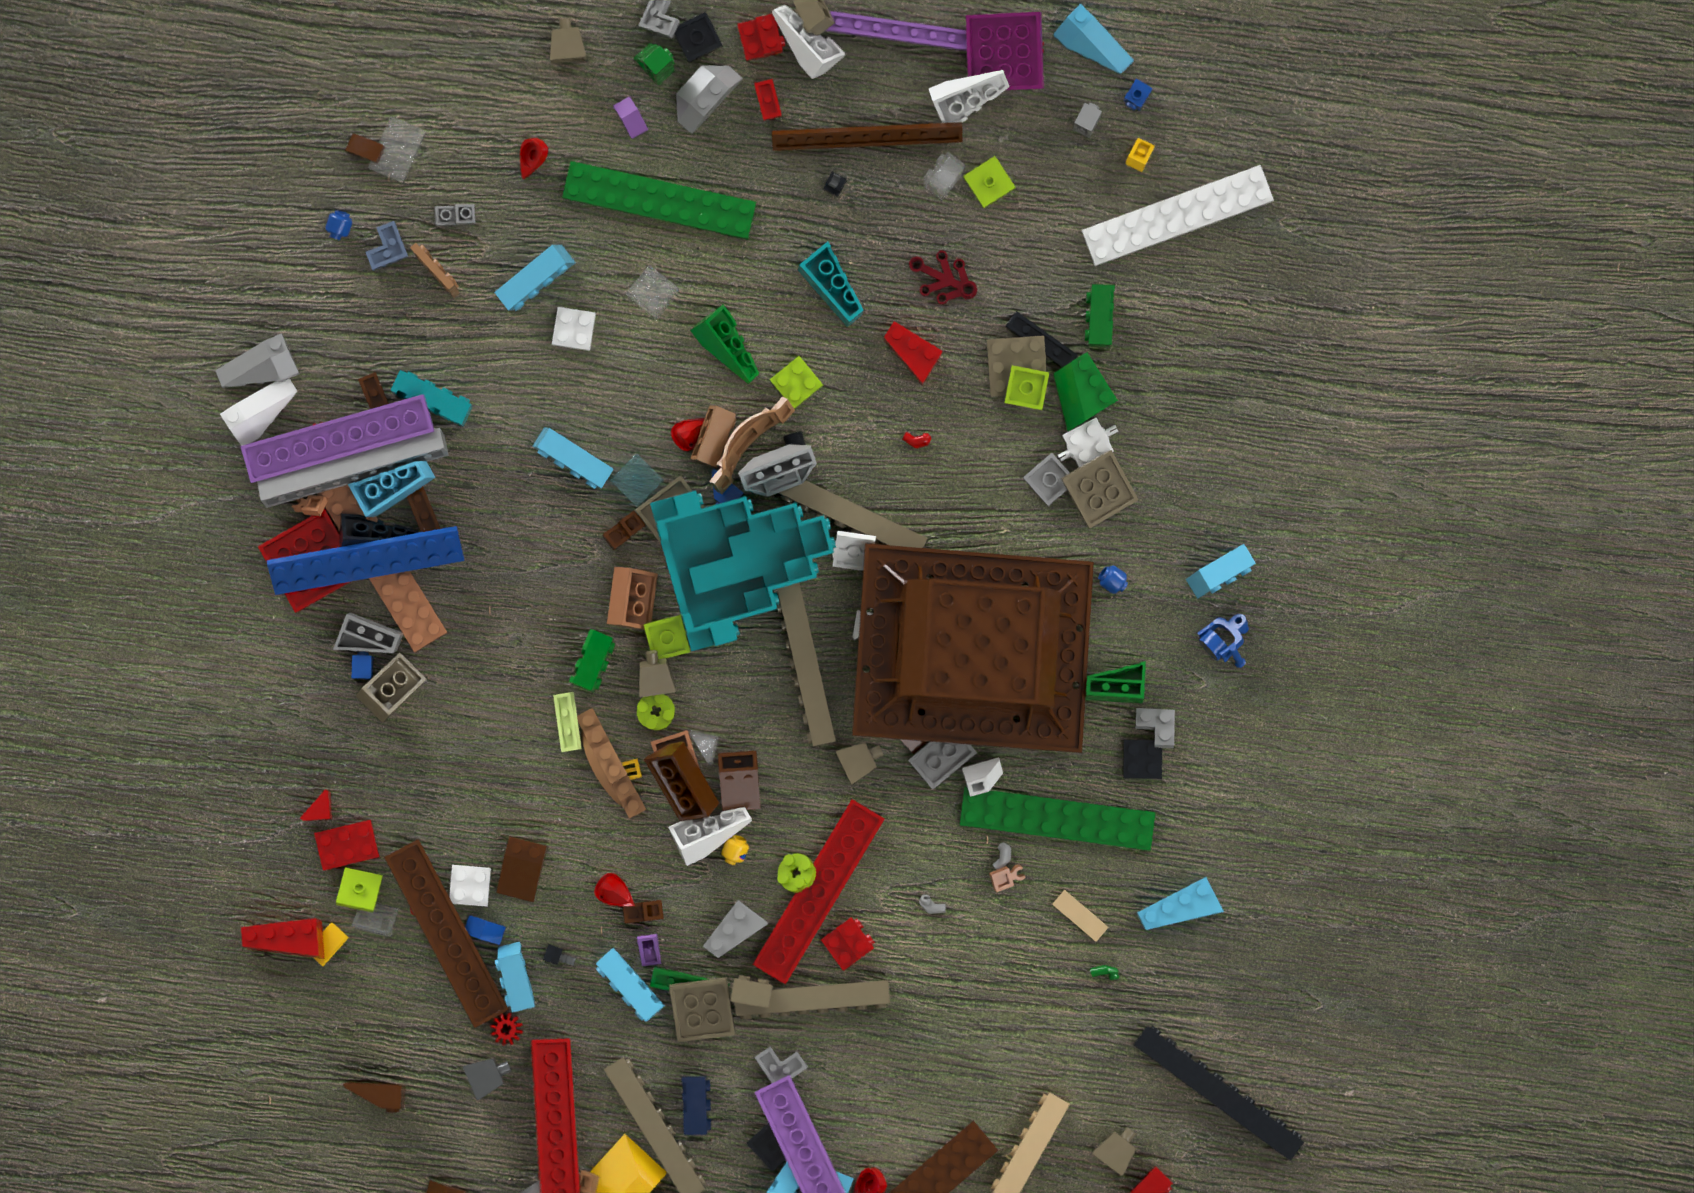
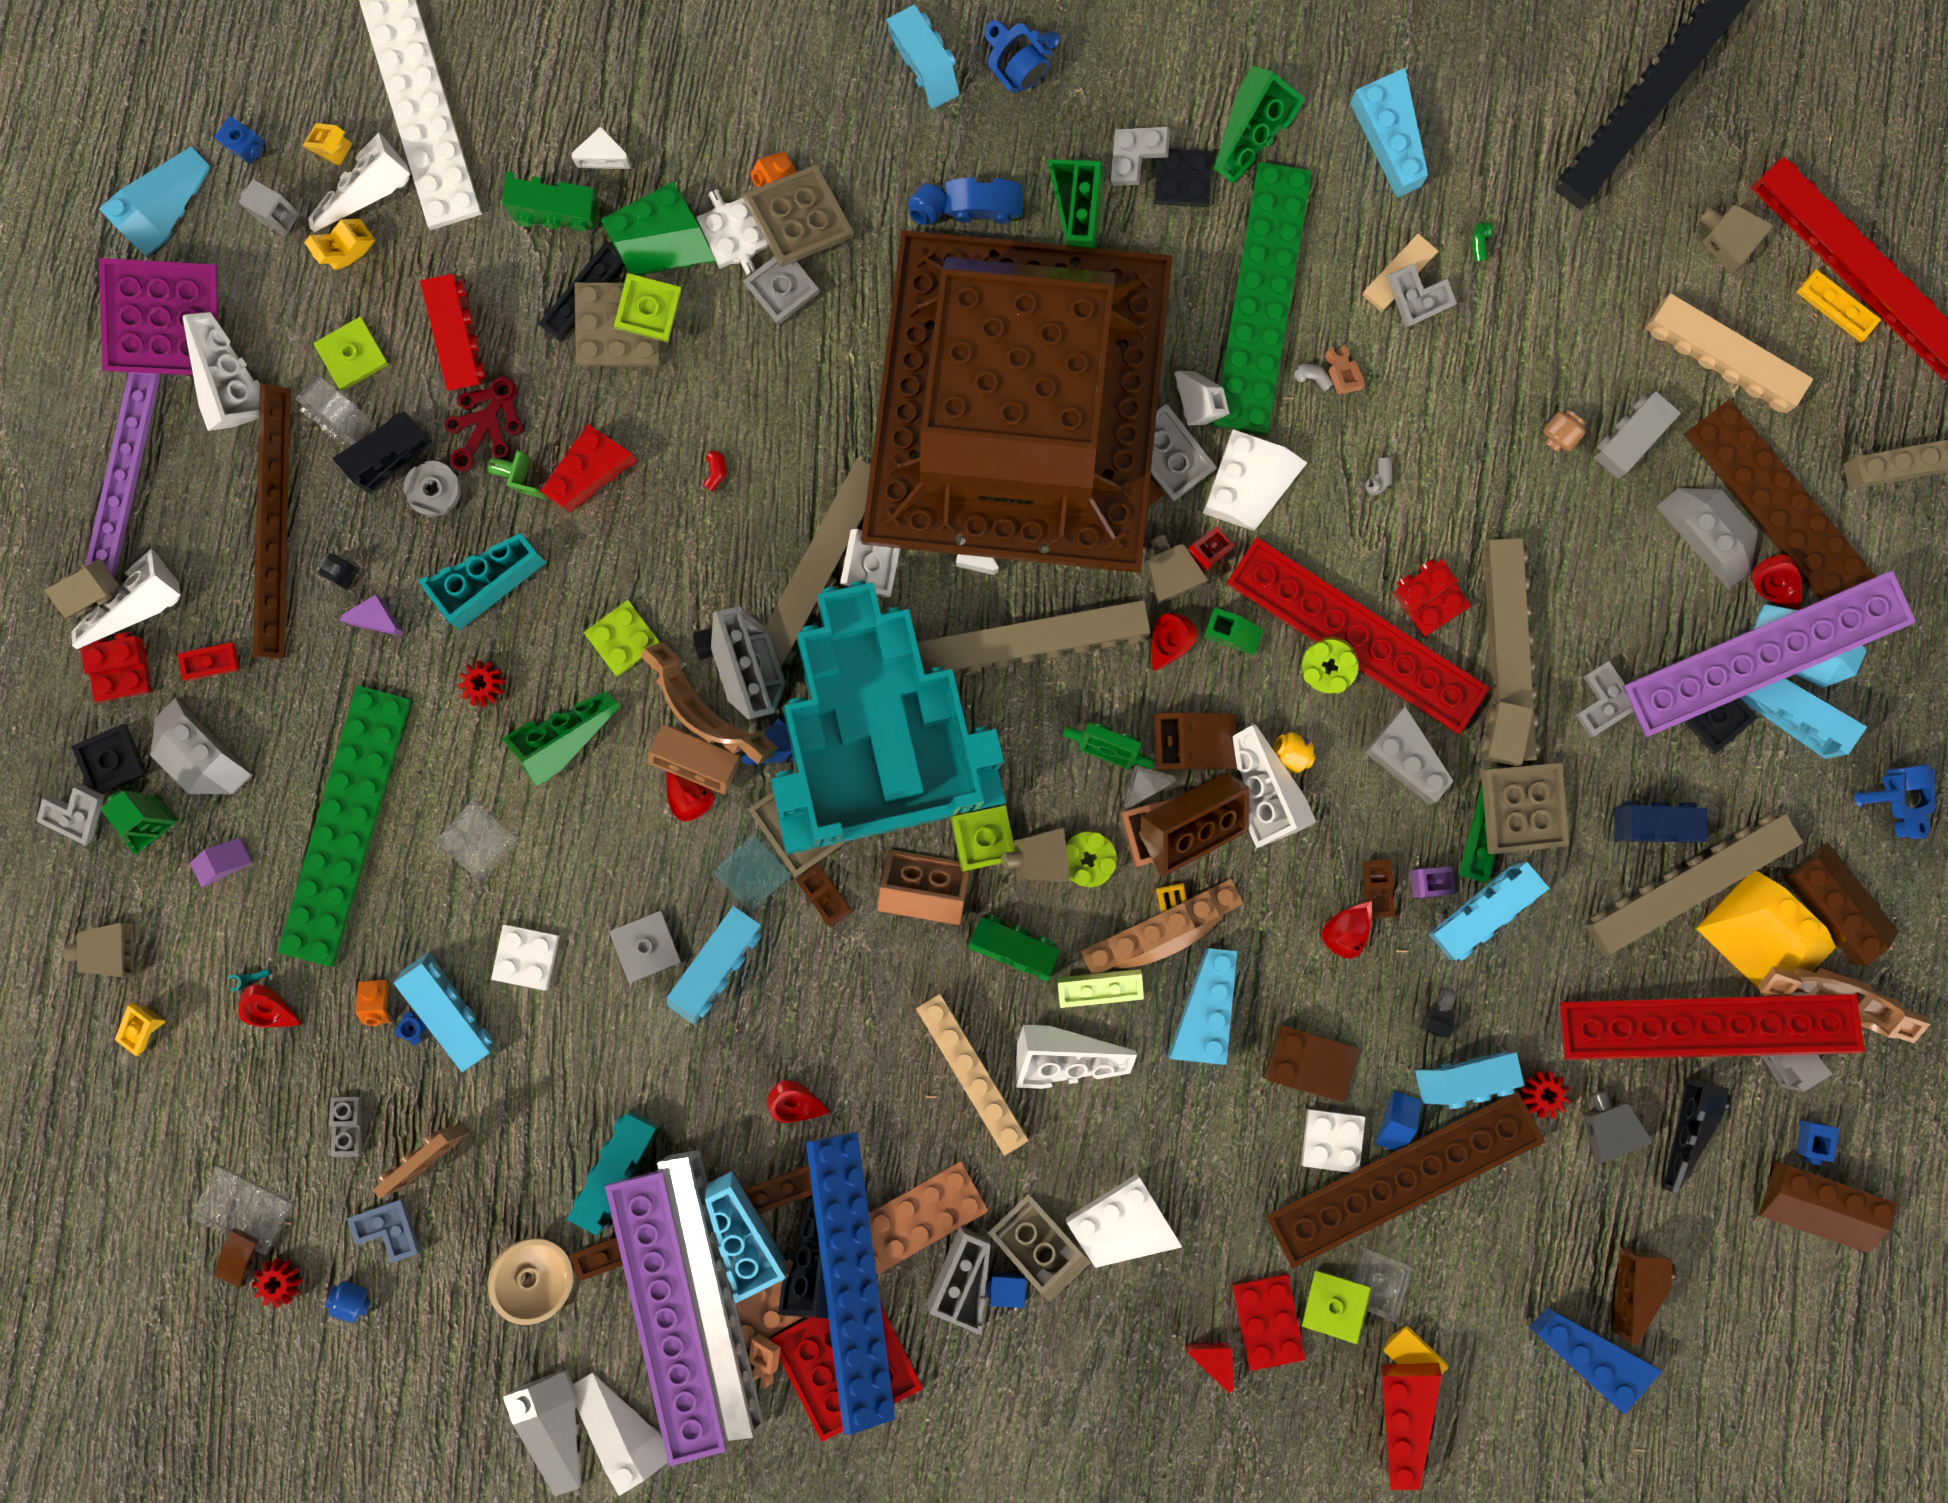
camera: 85 degrees left, 0 degrees up
(328, 1069) = (1604, 1365): none -> blue wedge
(353, 356) = (543, 1290): none -> tan dish
(356, 172) = (272, 1292): none -> red gear
(407, 743) = (1122, 1225): none -> white wedge
(482, 517) = (793, 1103): none -> red piece
(496, 1135) = (1697, 1120): none -> black wedge
(506, 636) = (972, 1074): none -> tan arch
(515, 71) = (137, 1027): none -> yellow slope
(519, 250) = (404, 1032): none -> blue plate
(520, 693) = (1057, 1055): none -> white wedge
(539, 227) = (372, 1002): none -> orange bracket
(551, 140) = (244, 980): none -> teal hand
(551, 795) = (1207, 1012): none -> medium azure wedge
(584, 410) = (645, 946): none -> light grey plate
(736, 713) = (1109, 746): none -> green plate
(763, 293) = (476, 693): none -> red gear
(803, 212) = (373, 615): none -> medium lavender slope
(811, 762) = (1171, 639): none -> red piece
(817, 805) = (1232, 631): none -> green slope
(875, 787) = (1210, 549): none -> red slope
(889, 236) = (426, 474): none -> light grey plate
(903, 1141) = (1713, 531): none -> light grey wedge
(909, 301) = (515, 472): none -> bright green bracket
(918, 210) = (383, 452): none -> black wedge
(924, 814) = (1250, 480): none -> white wedge
(969, 1033) = (1564, 431): none -> medium nougat head
(969, 1083) = (1636, 434): none -> light grey brick
(1005, 253) = (453, 331): none -> red wedge
(1057, 925) = (1415, 301): none -> light grey plate
(1065, 171) = (343, 245): none -> yellow brick
(1114, 188) = (374, 177): none -> white wedge
(1117, 618) = (990, 201): none -> blue brick
(1132, 469) = (771, 169): none -> orange bracket
(1140, 348) = (600, 152): none -> white slope
(1188, 809) = (1258, 114): none -> green wedge

